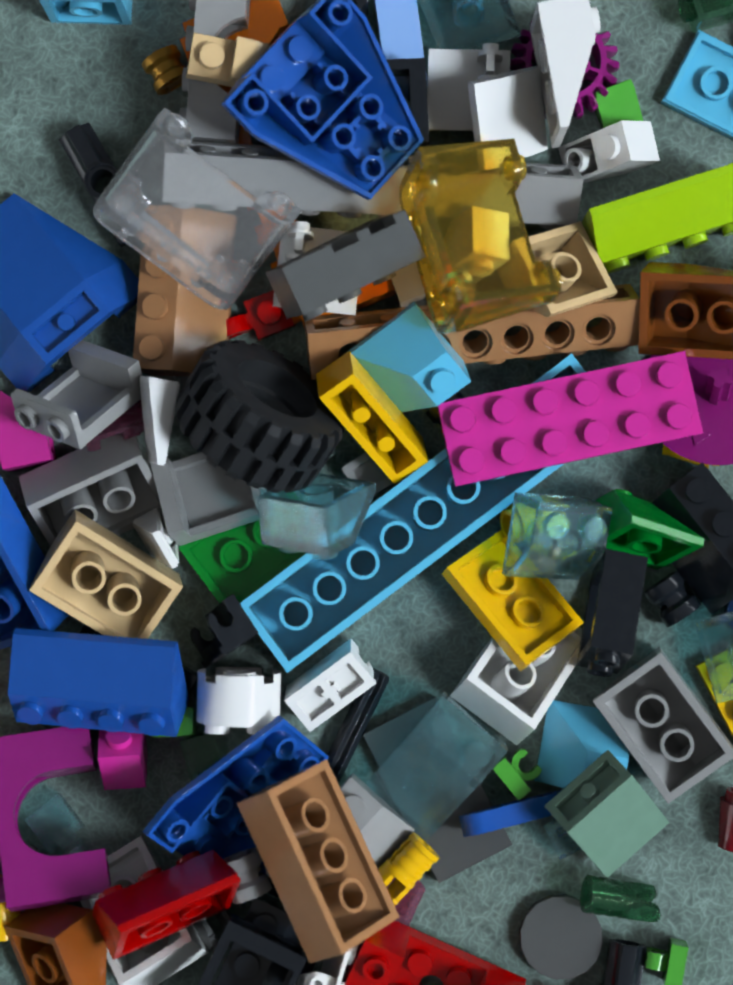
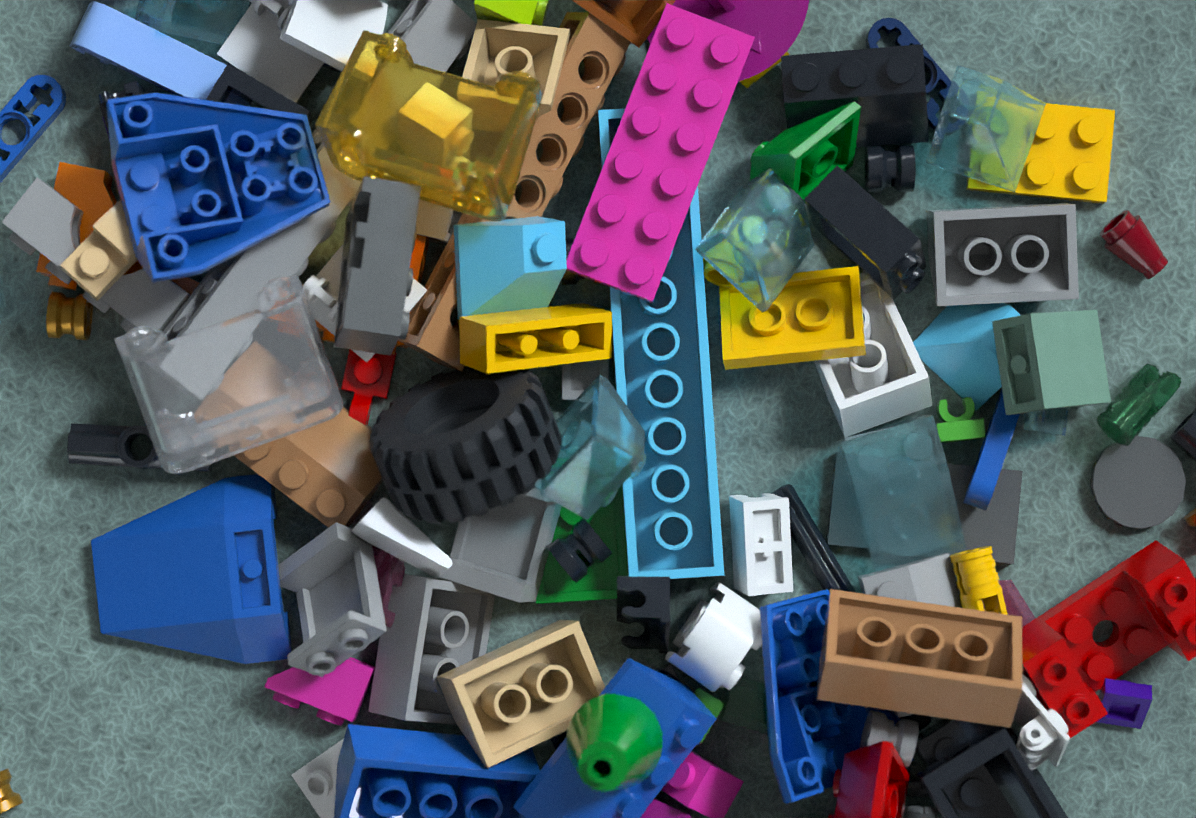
camera: 55 degrees left, 0 degrees up
(105, 672) = (614, 742): none -> green cone
(154, 535) = (514, 618): white slope -> none
(246, 554) = (590, 545): none -> black wheel

